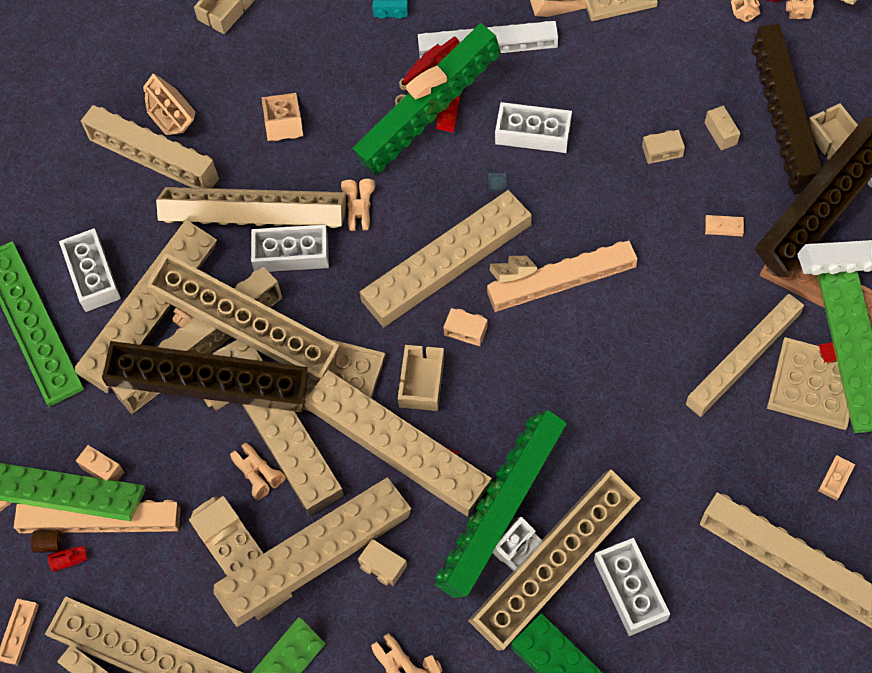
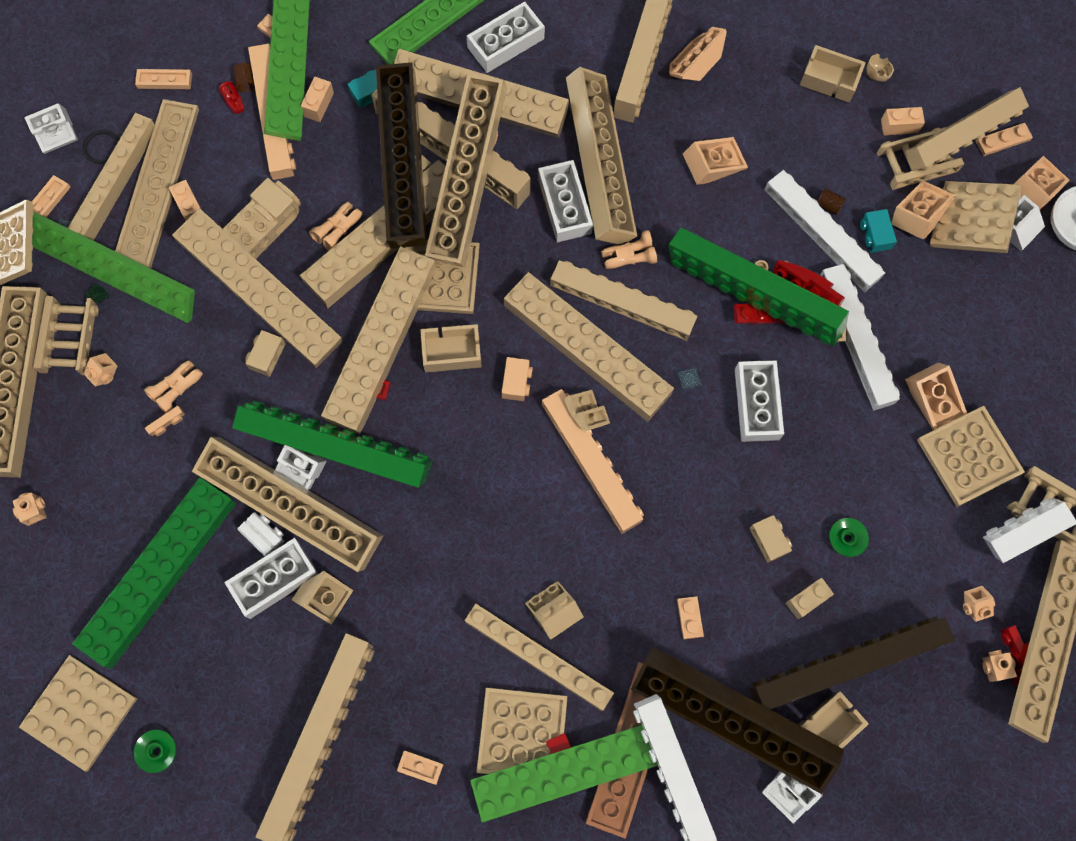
camera: 70 degrees right, 10 degrees up
(102, 412) = (363, 88): none -> teal brick
(183, 622) = (185, 199): none -> light nougat brick
(351, 33) = (831, 201): none -> reddish brown piece
(377, 45) = (824, 230): none -> white brick
(405, 220) = (623, 300): none -> tan brick
(425, 81) = (763, 273): light nougat slope -> none
(581, 593) = (261, 534): none -> white brick
(656, 542) = (323, 596): none -> tan slope
(673, 82) = (858, 537): none -> green dish
(701, 333) = (554, 610): none -> tan slope

